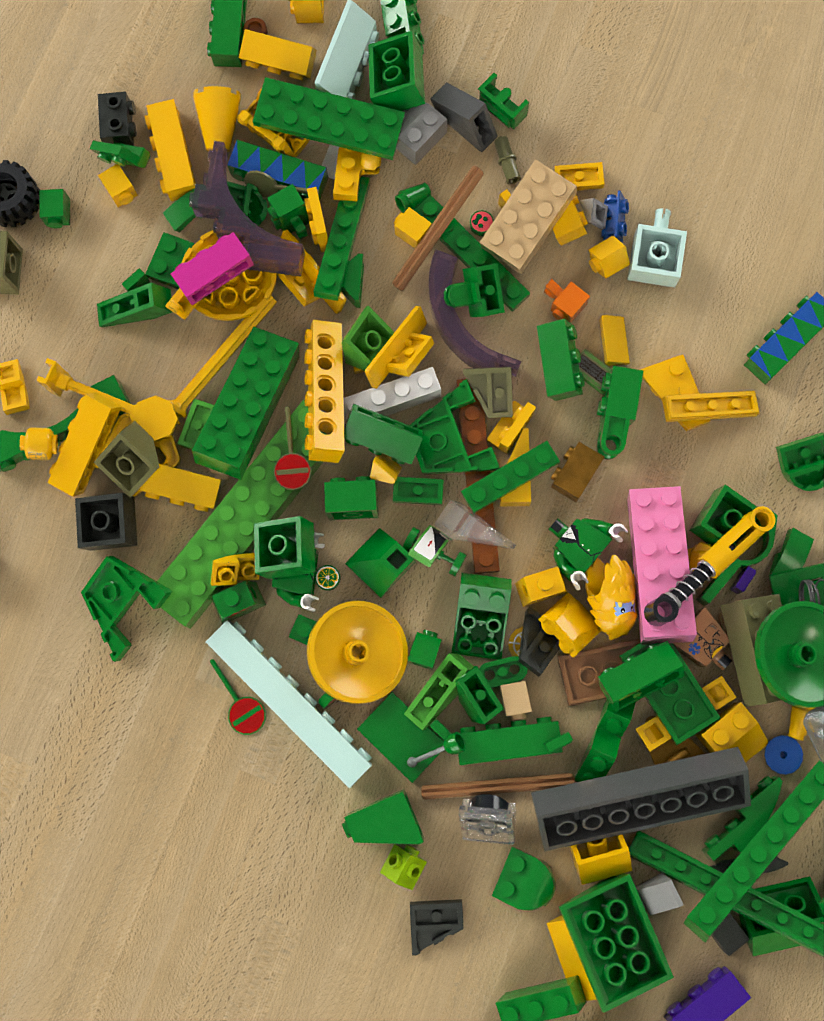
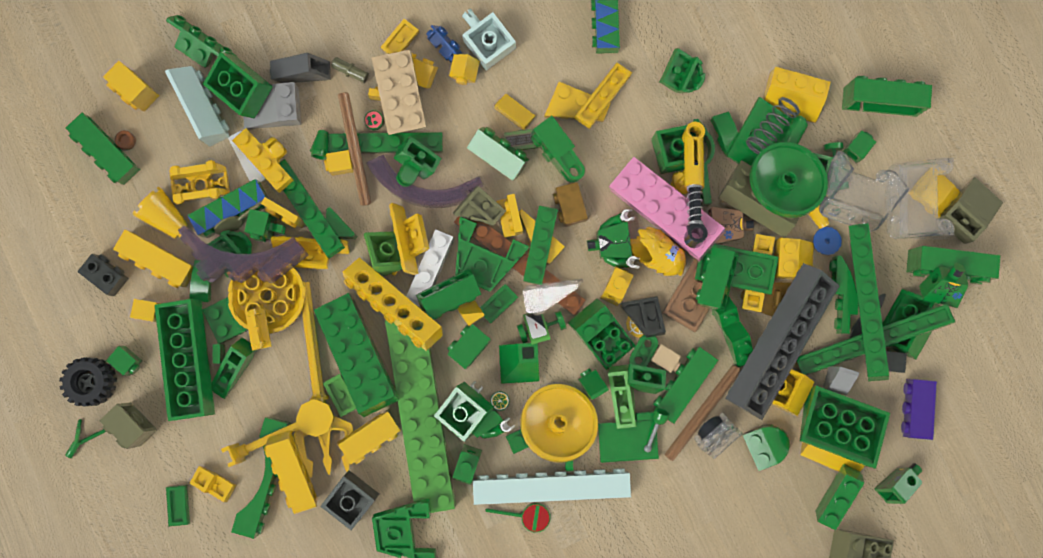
camera: 55 degrees left, 5 degrees up
(39, 443) = (267, 498): yellow head -> none
(102, 256) = (184, 359): none -> green brick
(121, 154) = (130, 291): green slope -> none
(129, 459) = (328, 453): olive slope -> none
(212, 268) = (258, 303): dark pink brick -> none
(233, 568) = (447, 450): yellow slope -> none
(277, 55) = (155, 142): yellow brick -> none
(292, 469) = (421, 365): piece -> none
(329, 118) = (228, 150): green plate -> none
(384, 821) = (667, 494): green slope -> none
(403, 866) = (700, 505): lime brick -> none
(434, 921) = (744, 515): pearl dark grey wing -> none
(500, 104) = (313, 42): green window -> none
(558, 742) = (712, 358): green tile -> none
(567, 302) = (468, 116): orange brick -> none
(570, 624) = (652, 290): yellow slope -> none
(595, 212) = (430, 51): light grey slope -> none
(743, 580) = (715, 171): dark purple tile -> none

